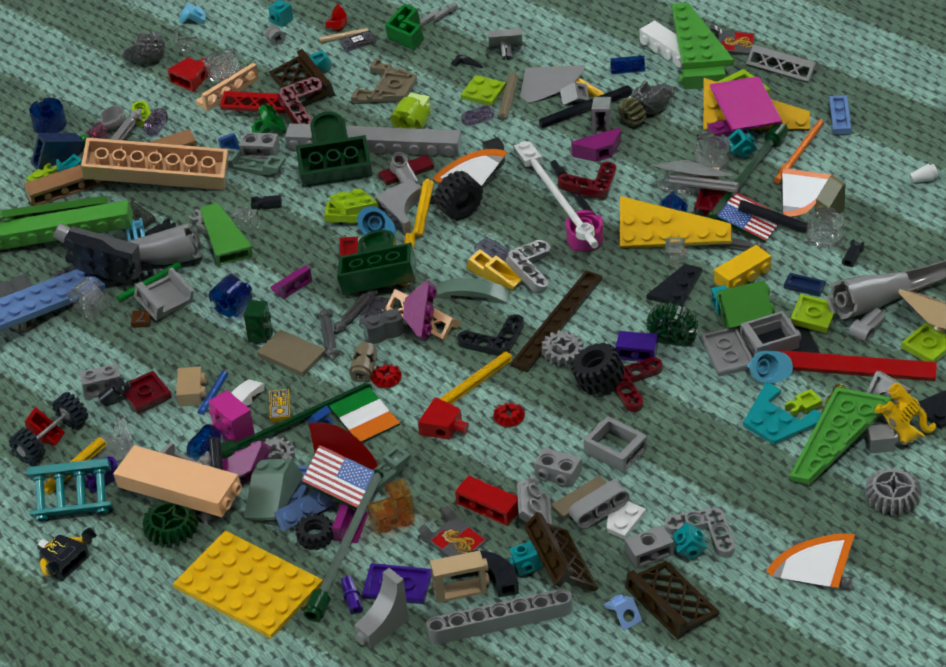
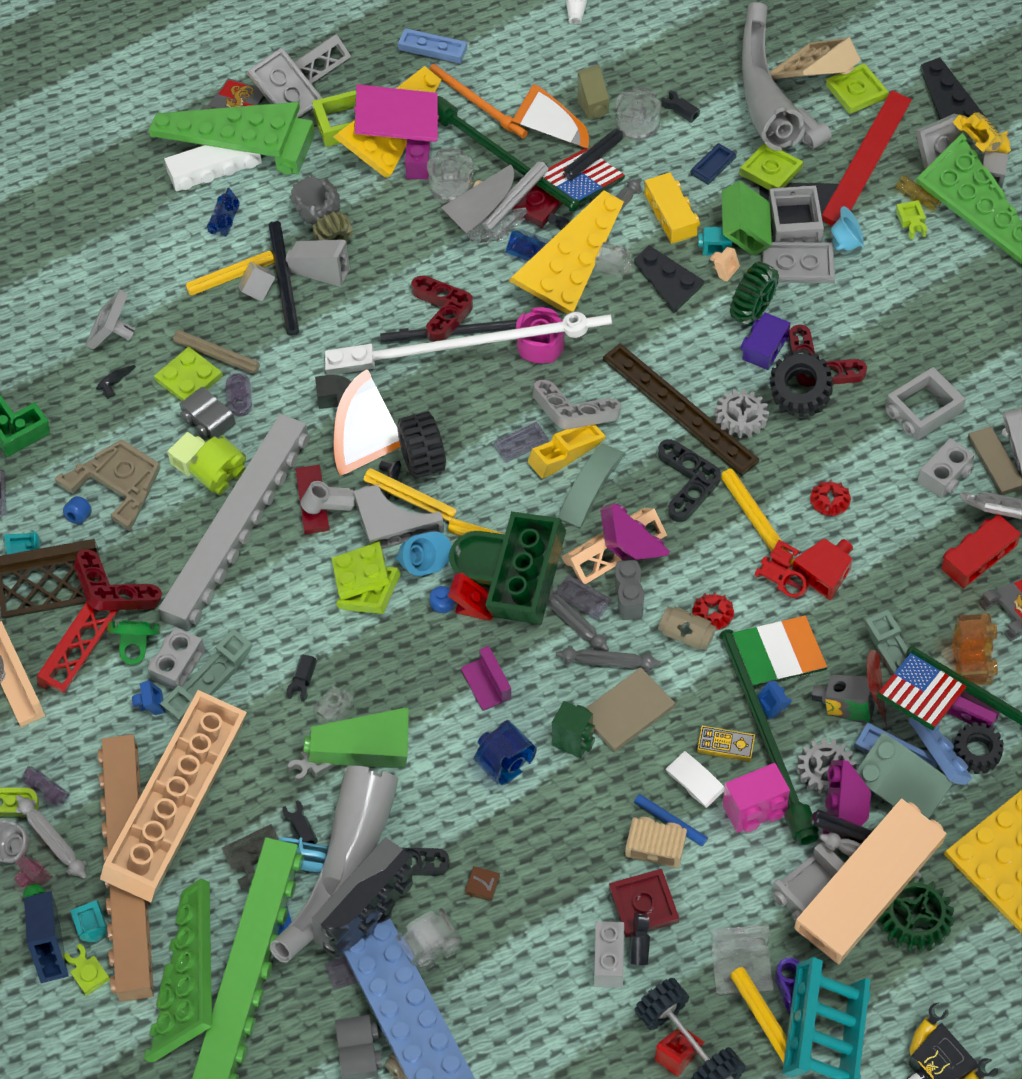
camera: 75 degrees left, 15 degrees up
(127, 294) = (420, 856): green bar -> none
(164, 295) = (457, 839): light grey panel -> none
(200, 442) = (776, 844): clear blue hat -> none
(332, 154) = (262, 565): dark green brick -> none
(357, 76) = (77, 510): none -> blue piece
(427, 396) = (779, 566): none -> red piece
(452, 104) = (206, 413): none -> dark grey brick
(547, 81) = (211, 302): light grey sticker -> none
(597, 146) = (376, 282): magenta slope -> none
(702, 309) = (725, 263): none -> light nougat tile
(742, 143) = (452, 135): teal brick -> none
(753, 52) = (283, 81): none -> light grey tile
(773, 422) = (927, 256): teal wing -> none

